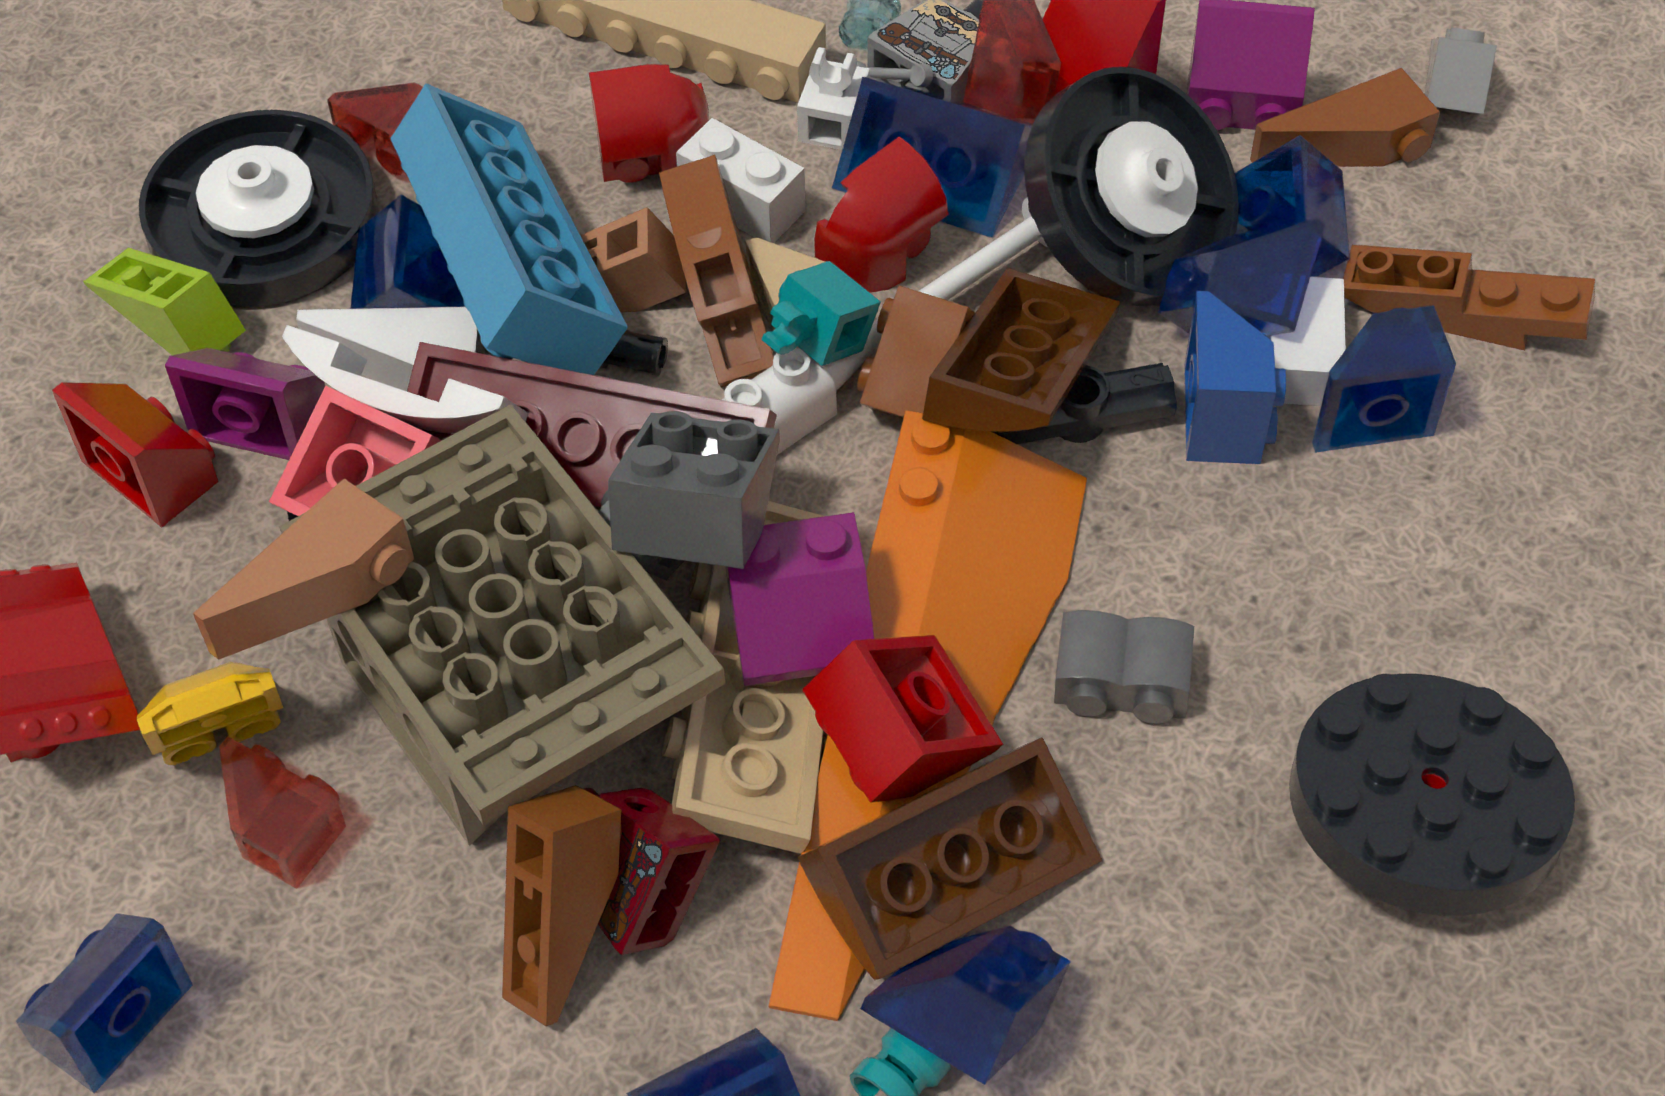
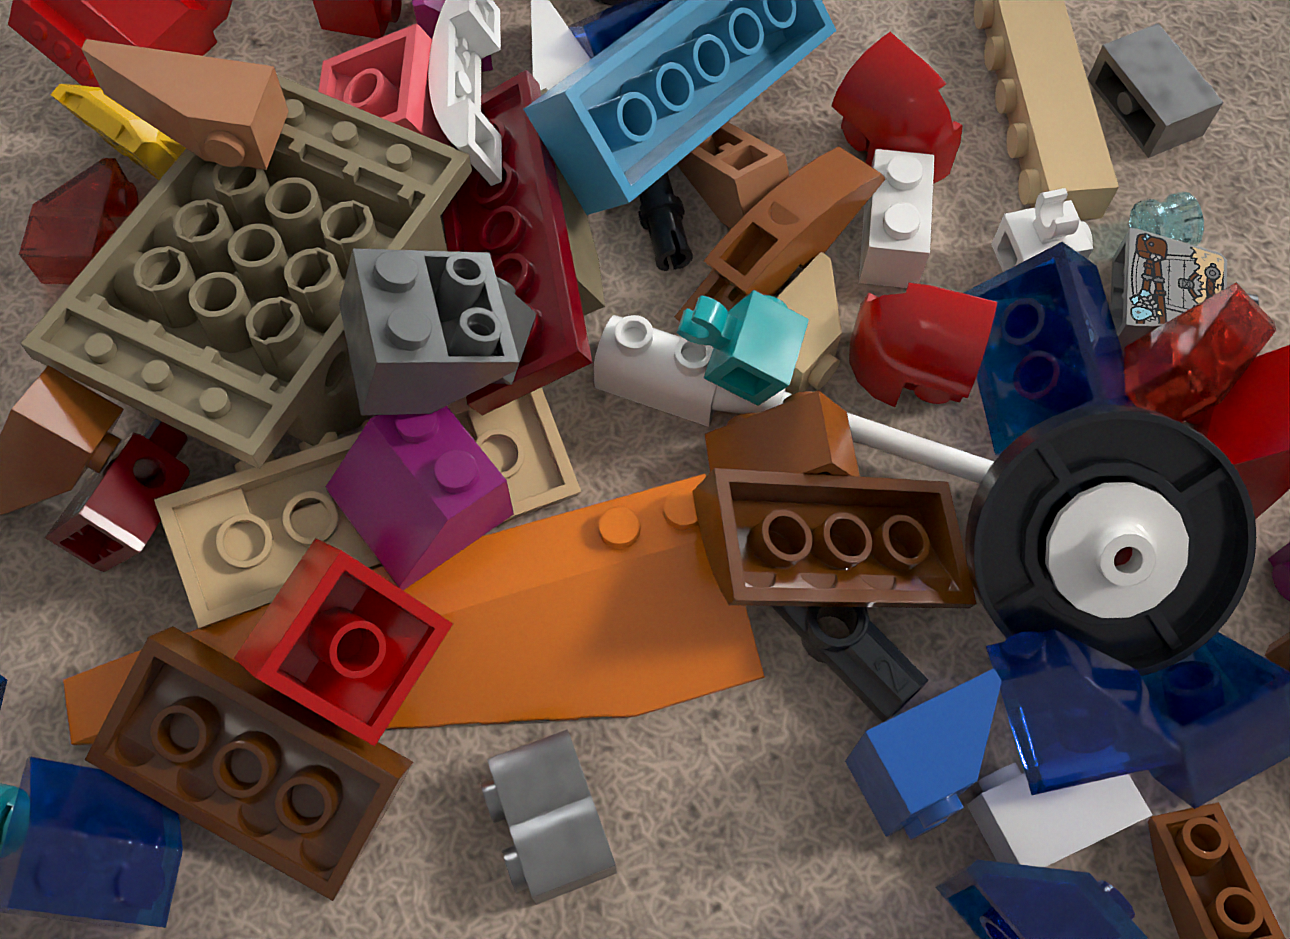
camera: 60 degrees right, 10 degrees up
(919, 75) = (1117, 289): light grey hinge -> none

